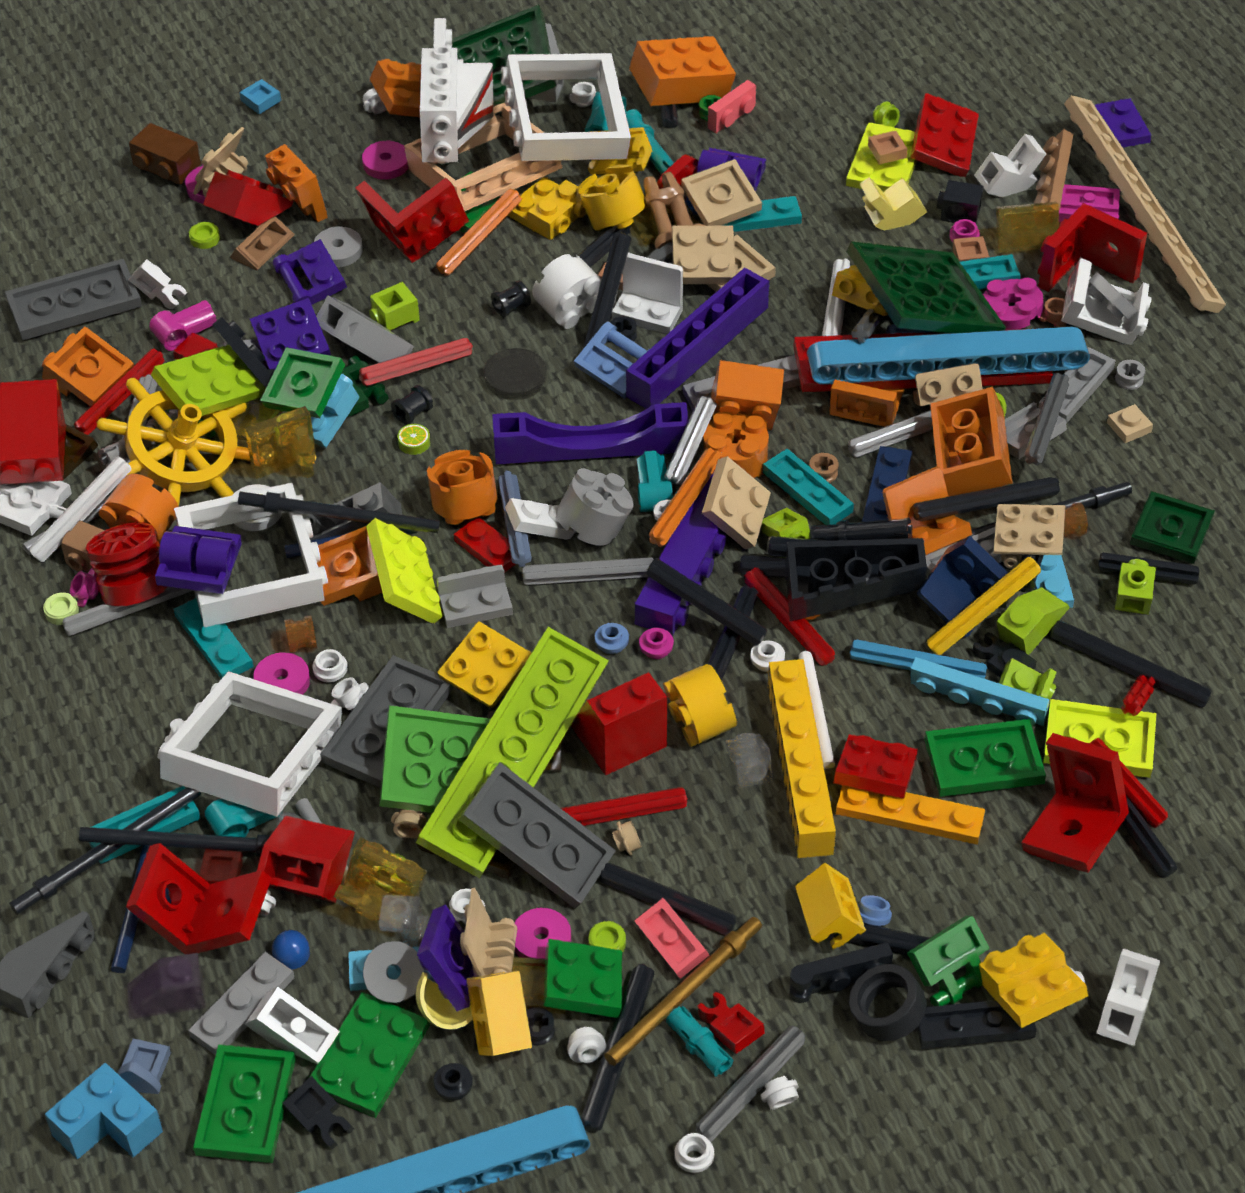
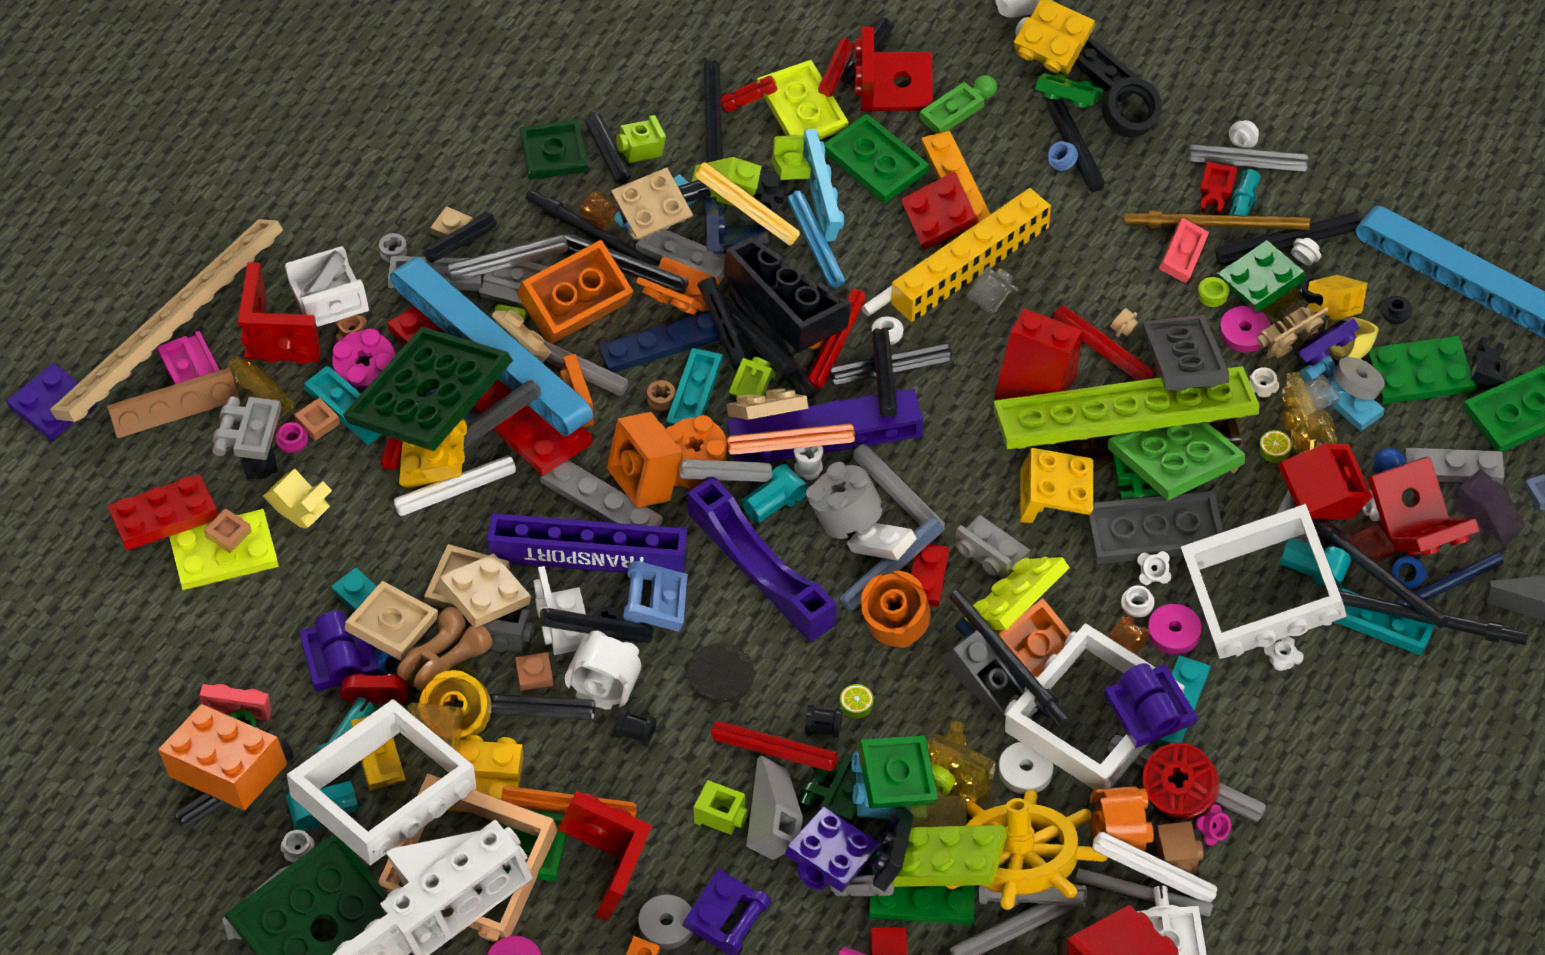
camera: 125 degrees left, 5 degrees up
(60, 607) = (1245, 835): yellowish green tile -> none
(291, 1026) = (1451, 415): white slope -> none
(591, 162) = (442, 720): none -> clear yellow slope
(615, 644) = (951, 442): medium blue plate -> none
(656, 650) = (934, 412): dark pink plate -> none
(681, 903) = (1150, 272): black axle -> none
(690, 1143) = (1327, 153): white plate -> none
(700, 704) = (980, 329): yellow brick -> none
(829, 906) = (1086, 172): yellow hinge -> none
(835, 971) = (1127, 147): black plate -> none
(886, 114) = (160, 576): lime plate -> none
(976, 185) = (255, 431): none -> light grey plate
(1008, 865) = (958, 104): none -> bright green plate
(1013, 173) = (183, 434): white brick -> none
(1103, 410) = (459, 237): none -> black axle

